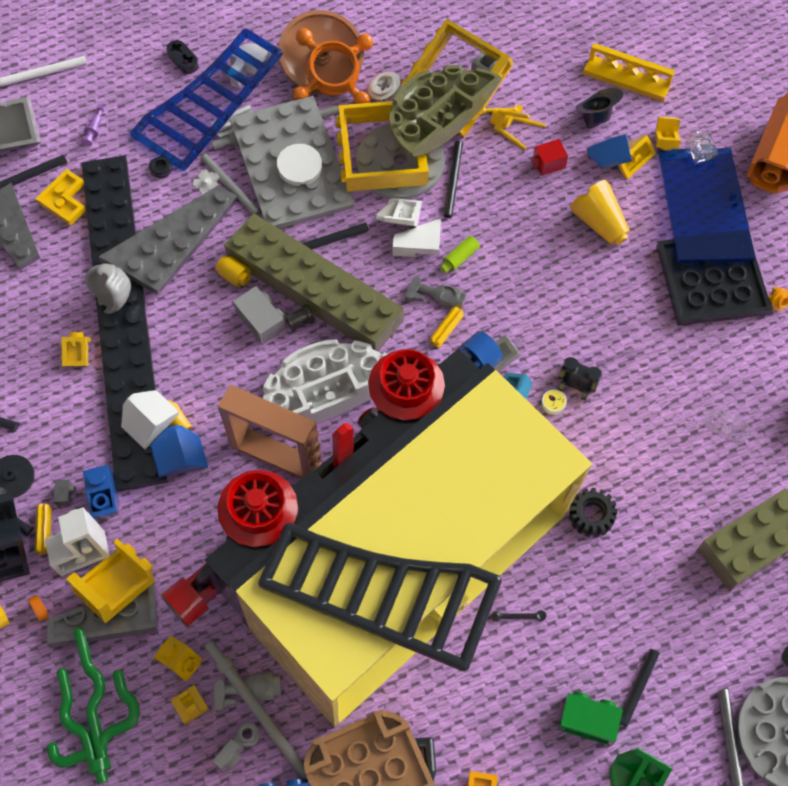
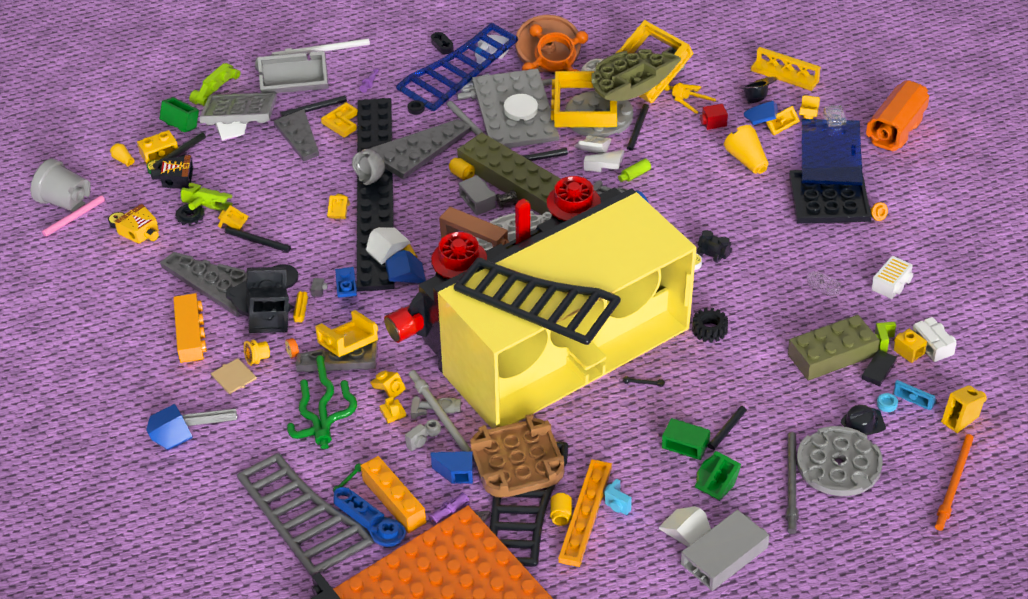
camera: 10 degrees right, 20 degrees down
(77, 544) = (328, 309): white brick -> none
(206, 182) = (449, 116): white plant -> none

